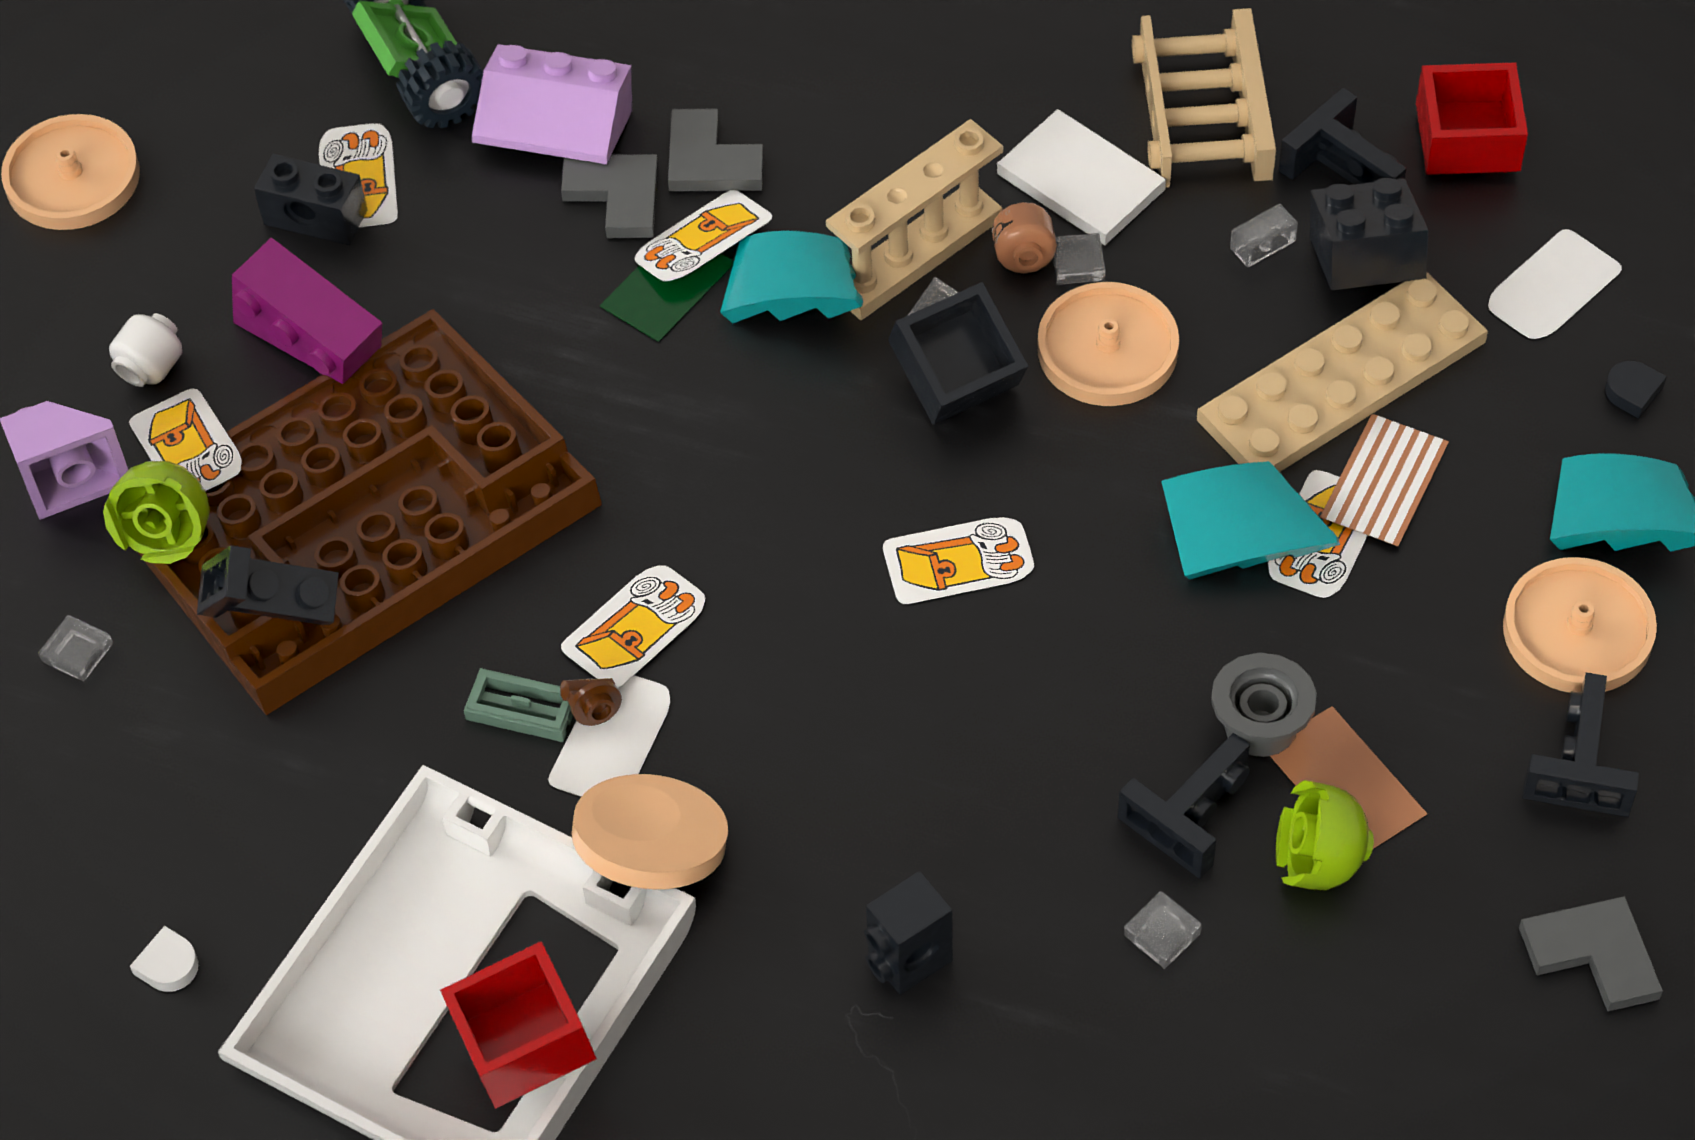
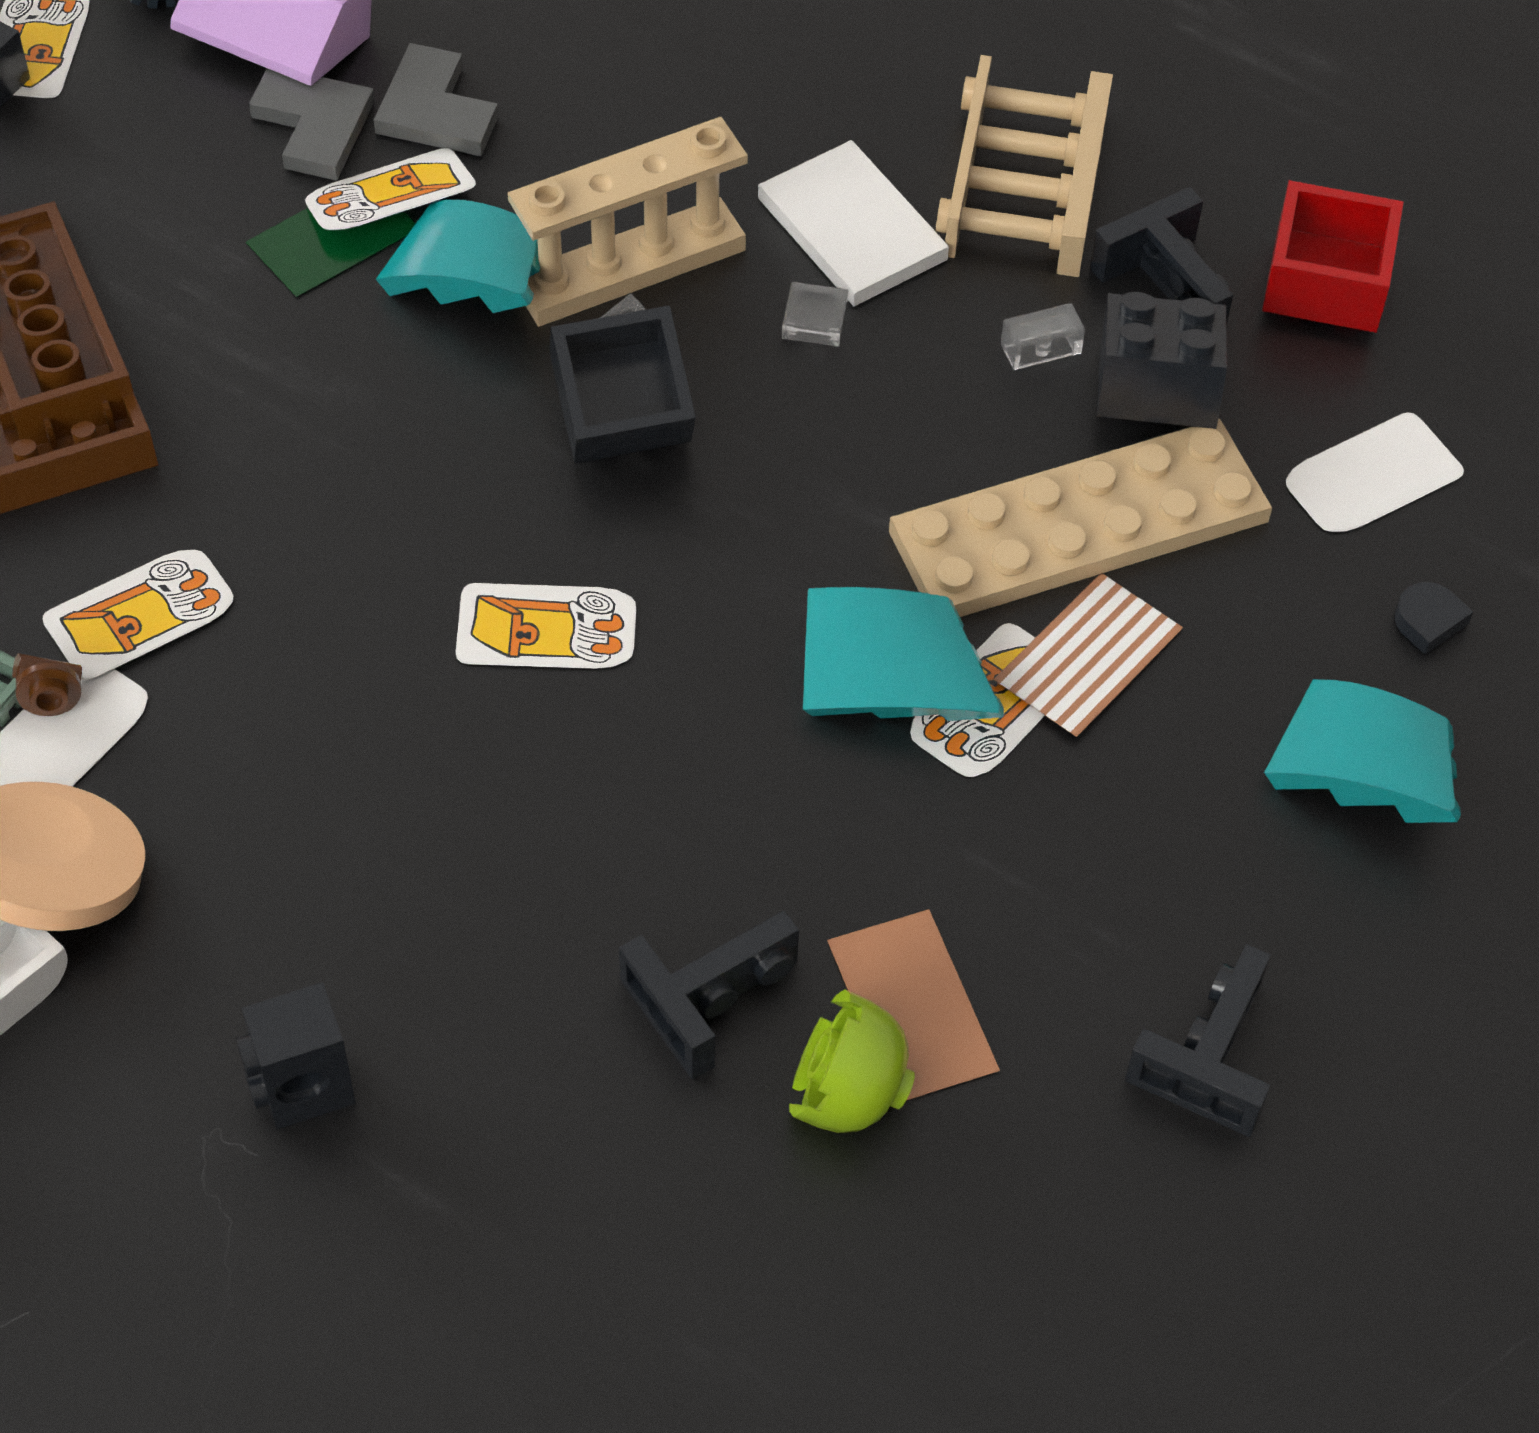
camera: 10 degrees right, 0 degrees up
(1024, 233) = (758, 269): nougat head -> none
(1108, 343) = (814, 418): light nougat piece -> none
(1162, 929) = (621, 1130): clear plate -> none
(1264, 701) = (836, 882): dark grey piece -> none
(1579, 620) = (1267, 880): light nougat piece -> none
(1597, 936) = (1159, 1278): dark grey tile -> none

